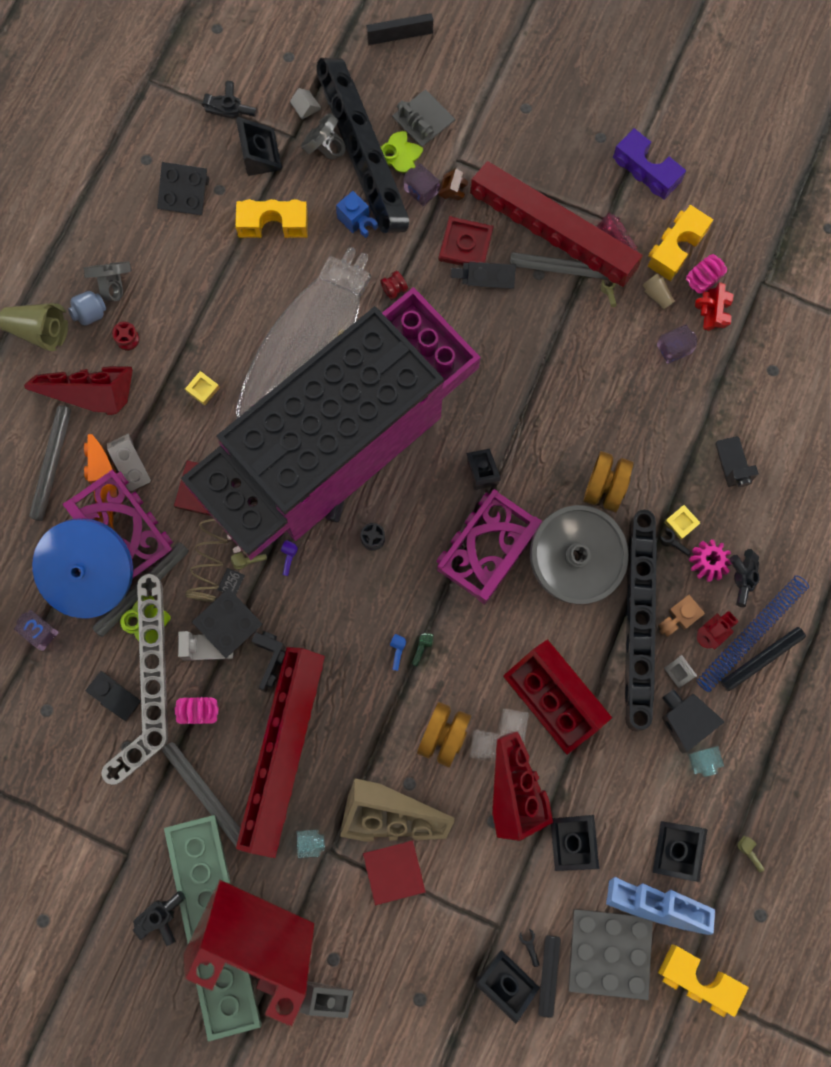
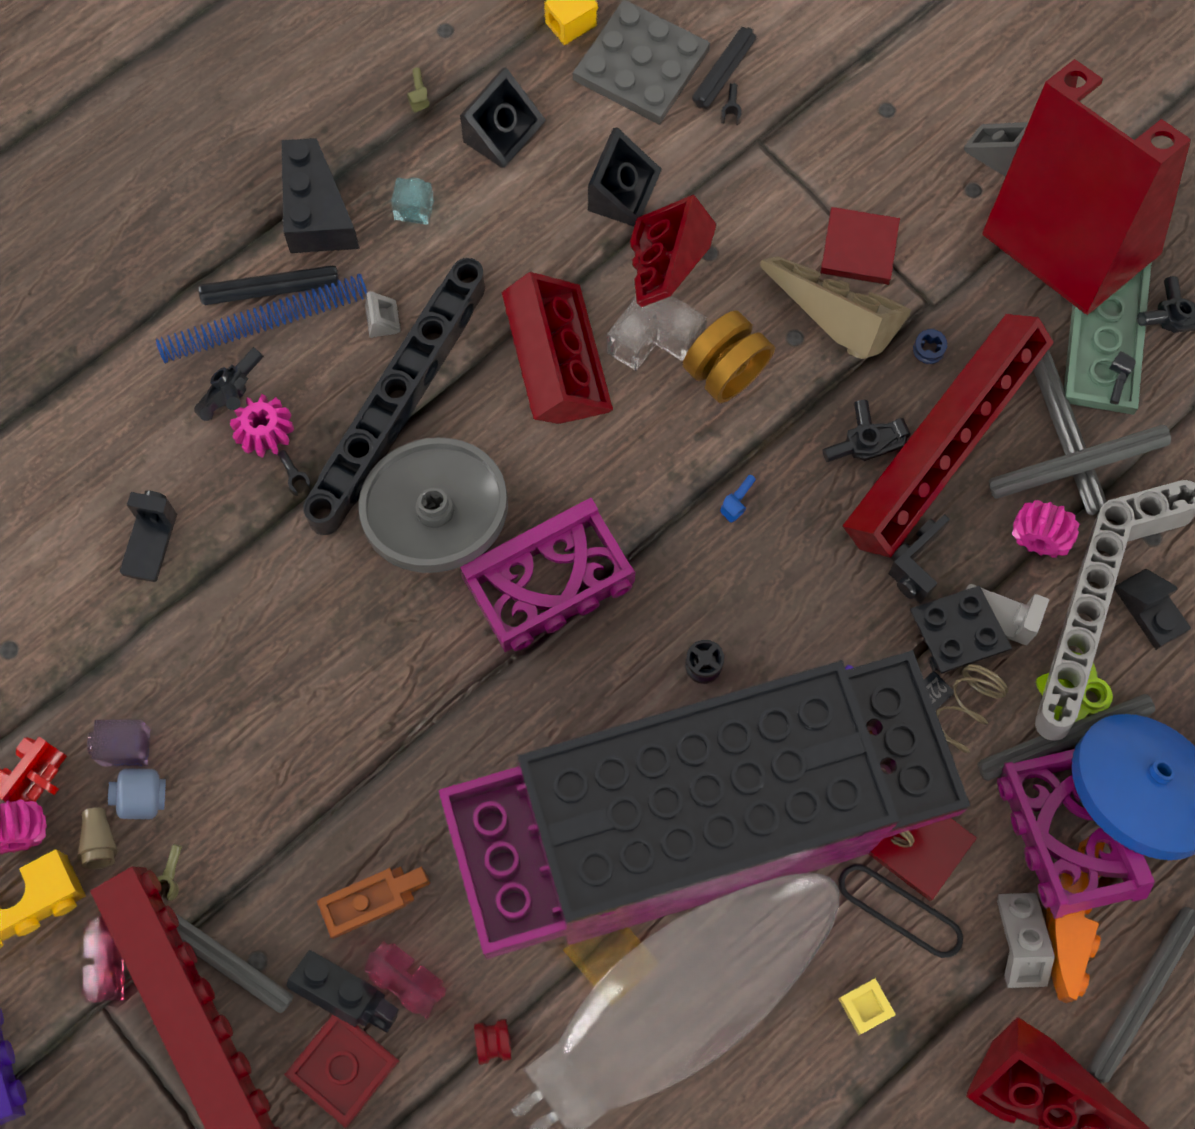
camera: 155 degrees left, 5 degrees down
(182, 851) = (1122, 365): none -> black hand
(187, 438) = (954, 951): none -> black piece
(189, 768) = (1080, 461): none -> dark grey axle
(310, 843) = (954, 314): clear light blue plate -> none
(318, 824) = (931, 336): none -> dark blue bush
(331, 726) = (869, 439): none -> black piece
(425, 640) = (695, 495): clear green hand -> none
(465, 297) = (416, 992): none -> clear pink hinge
(483, 469) = (502, 682): black slope -> none
(495, 325) = (370, 899): none -> dark orange hinge
(507, 986) = (782, 72): black slope -> none
(610, 482) = (339, 578): pearl gold wheel -> none
(651, 322) = (137, 794): none -> sand blue head
(660, 907) = (558, 77): medium blue slope -> none
(682, 522) = (268, 492): light yellow plate -> none
(685, 614) = (333, 381): medium nougat plate -> none
(689, 720) = (406, 251): black torso -> none
(716, 630) = (308, 335): dark red hips -> none
(772, 729) = (312, 204): none -> black wedge

